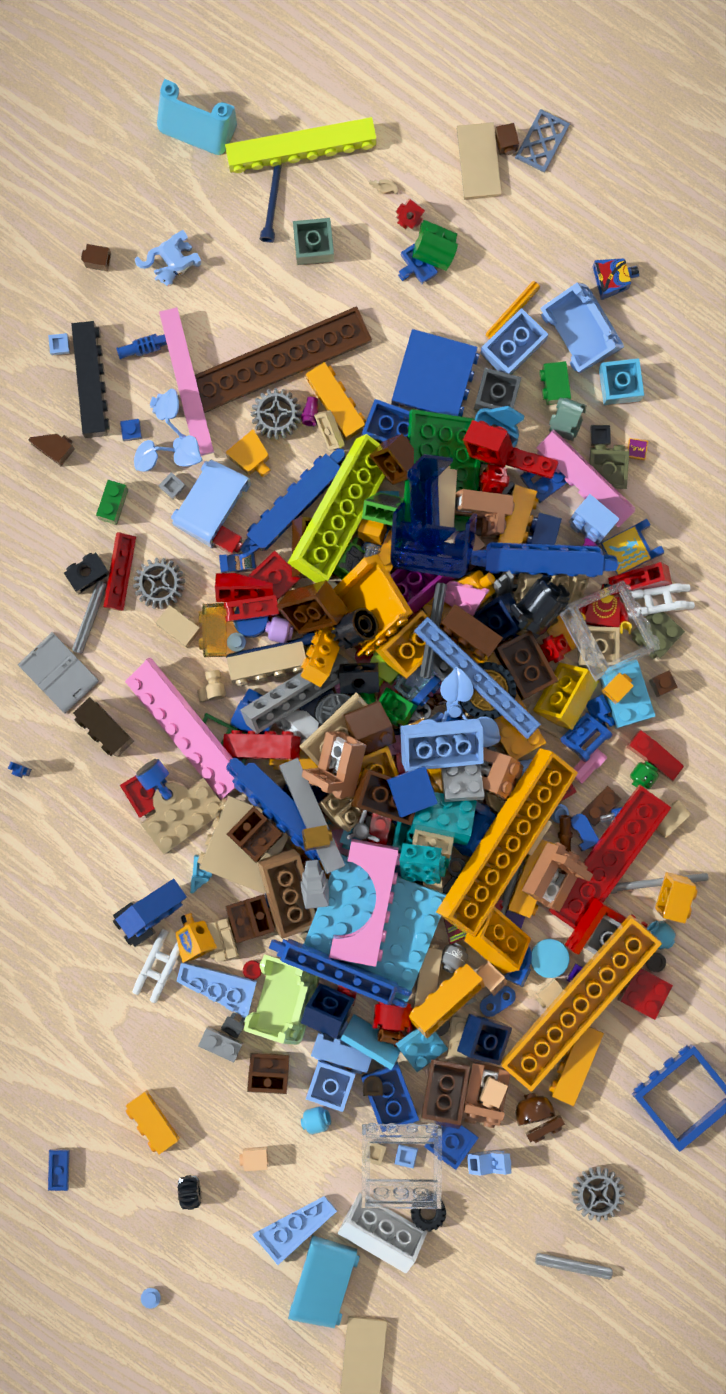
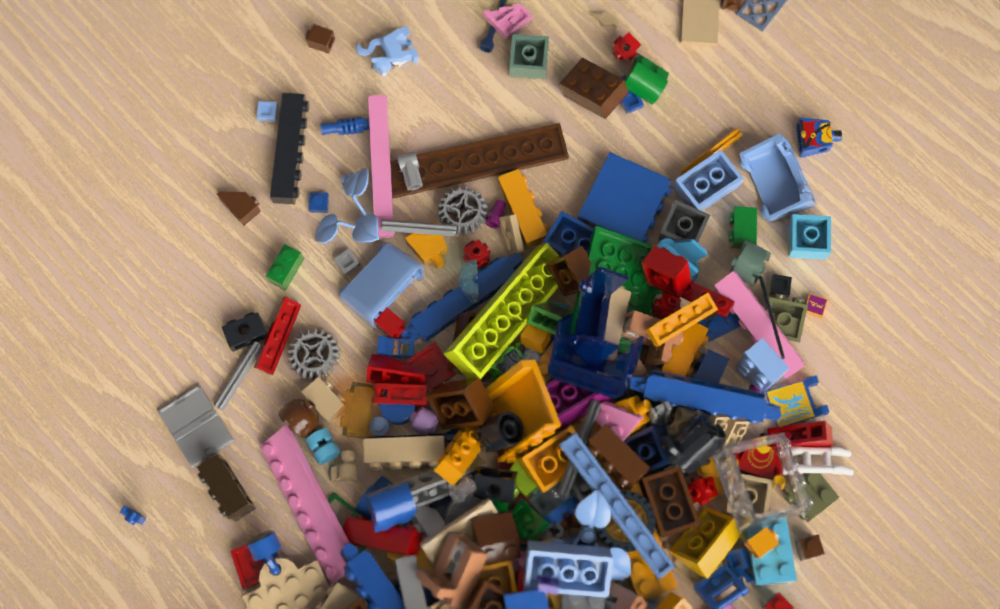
camera: 15 degrees right, 10 degrees down
(159, 645) = (300, 415): none -> reddish brown cylinder
(191, 676) = (327, 451): none -> medium azure wheel
(215, 378) = (409, 166): none -> light grey piece
(237, 440) = (418, 228): none -> light grey axle
(267, 718) = (391, 507): none -> blue brick
(284, 204) = (508, 19): none -> bright pink wing
(295, 490) = (466, 279): none -> clear light blue cylinder
(298, 462) = (482, 257): none -> red brick
(332, 686) = (463, 489): none -> clear bush
(384, 264) = (594, 88): none -> reddish brown brick
(426, 762) = (547, 584): none -> dark purple tile
(510, 489) = (681, 319): none -> light orange plate
(596, 470) = (772, 318): none -> black axle

